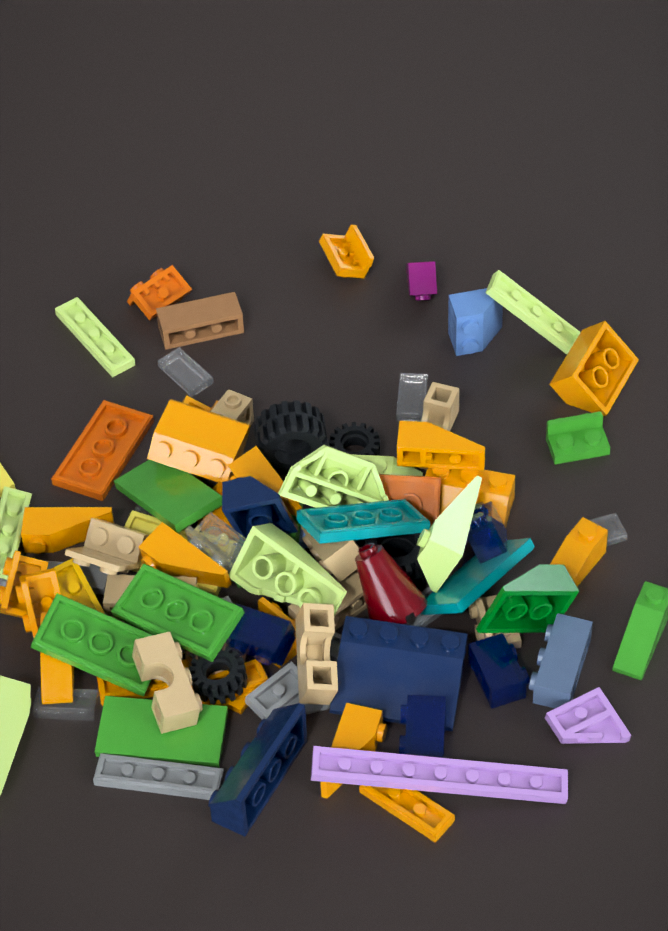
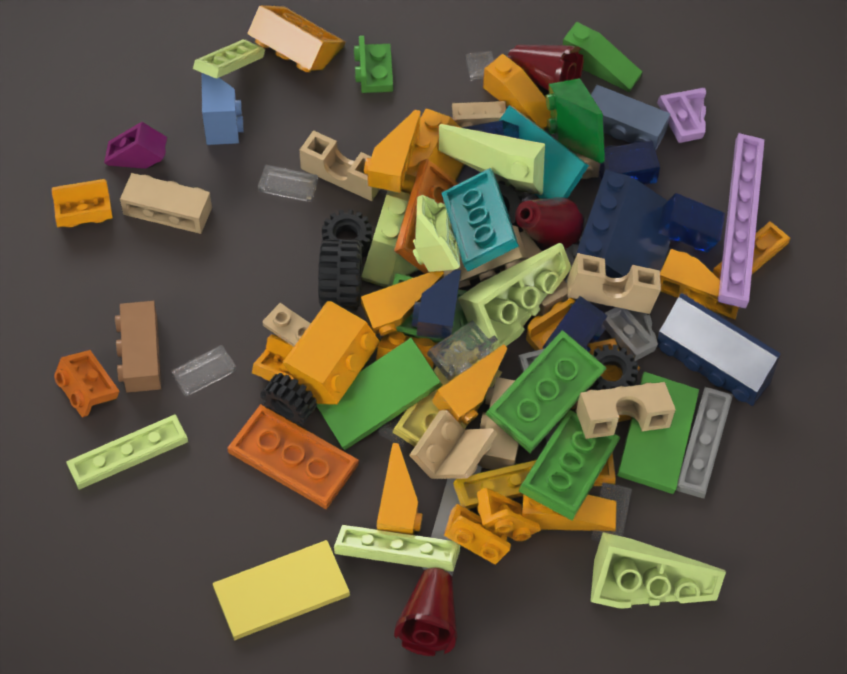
camera: 85 degrees left, 10 degrees up
(145, 424) = (288, 398): none -> black tyre
(363, 310) = (166, 203): none -> tan brick
(537, 527) = (477, 113): none -> tan bracket
(608, 583) = (548, 62): none -> dark red cone

